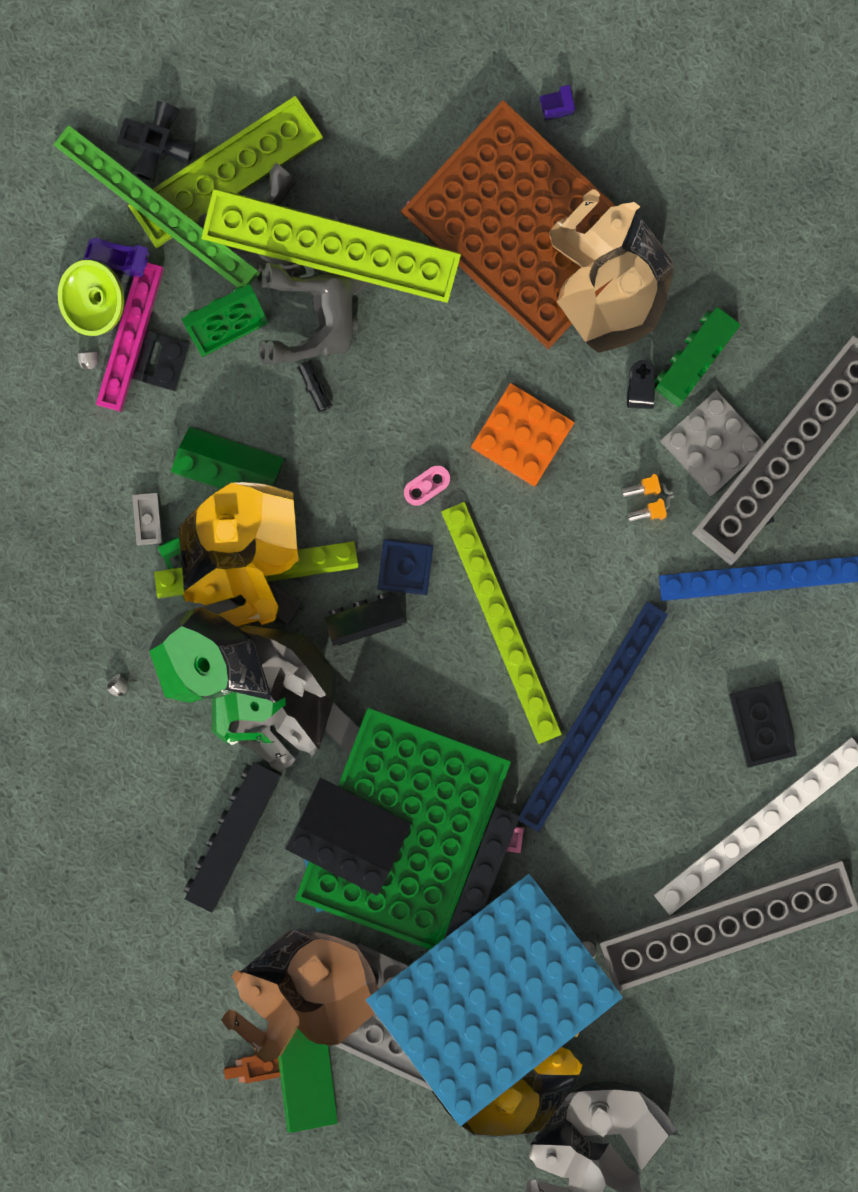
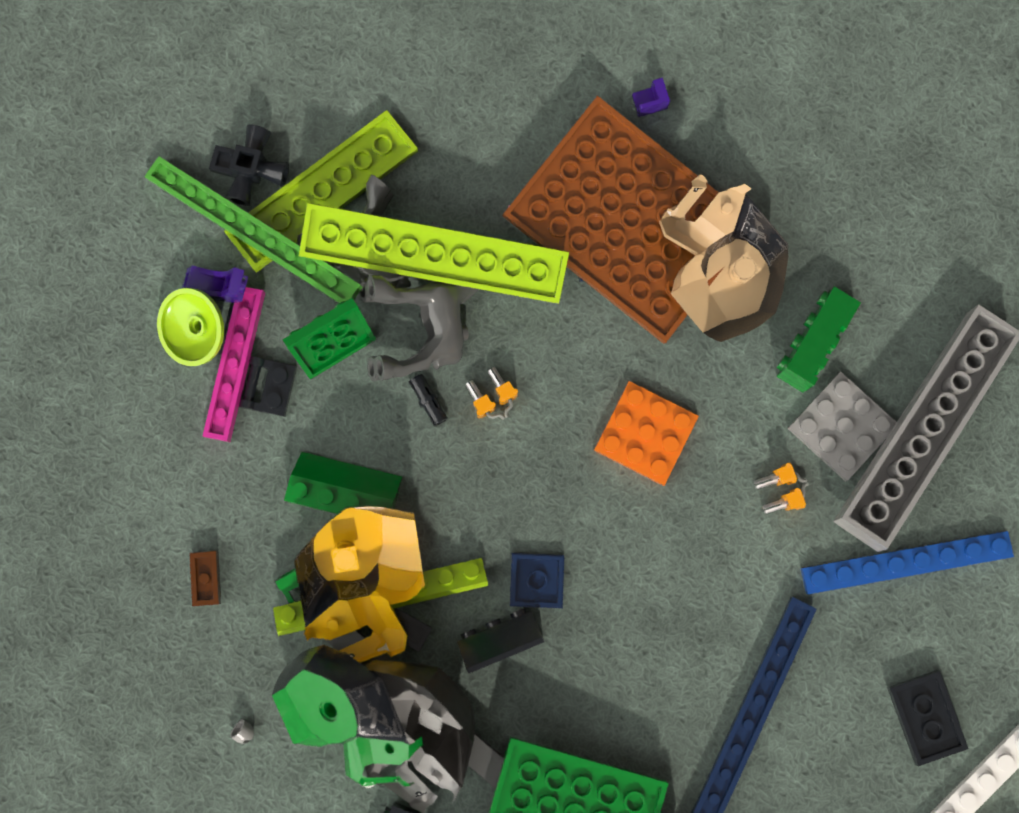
camera: 10 degrees left, 5 degrees down
(88, 360) = (192, 391): light grey hinge -> none
(90, 540) = (205, 578): none -> reddish brown plate
(147, 519) = (263, 551): light grey plate -> none
(367, 394) = (483, 404): none -> piece
(425, 483) = (552, 493): bright pink plate -> none
(501, 623) = (643, 633): lime plate -> none
(641, 391) = (764, 376): black piece -> none

